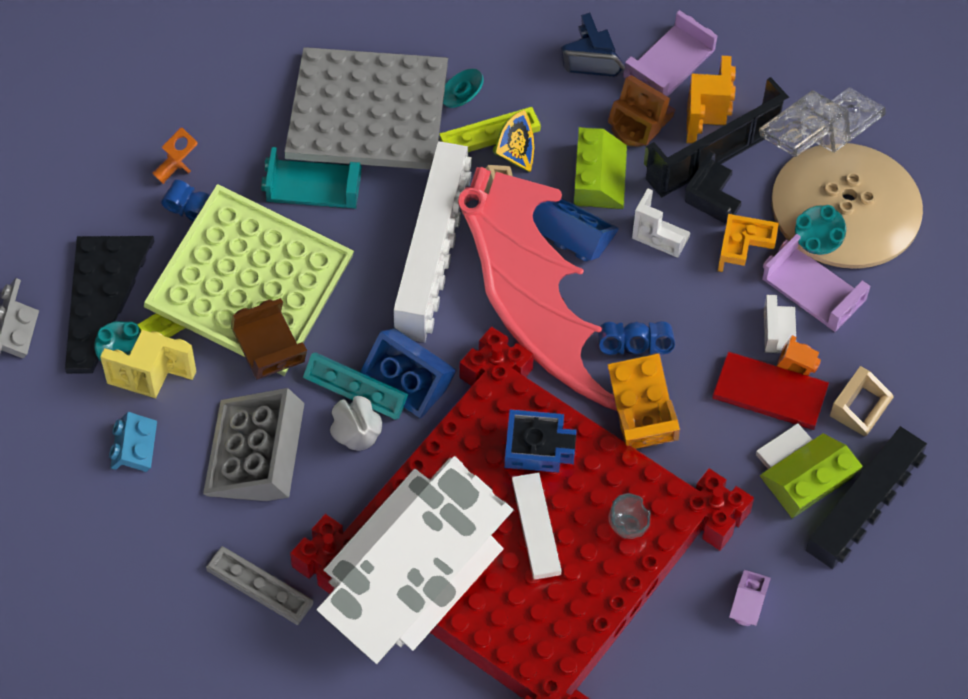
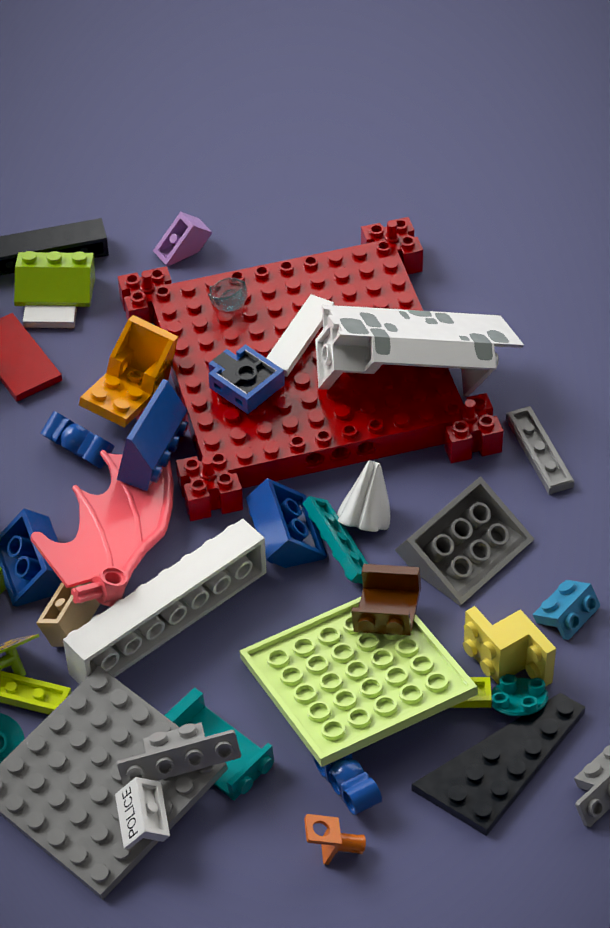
camera: 140 degrees left, 10 degrees down
(309, 86) = (142, 812): none -> white panel
(320, 131) = (179, 753): none -> light grey bracket
(564, 353) = (153, 438): none -> blue slope

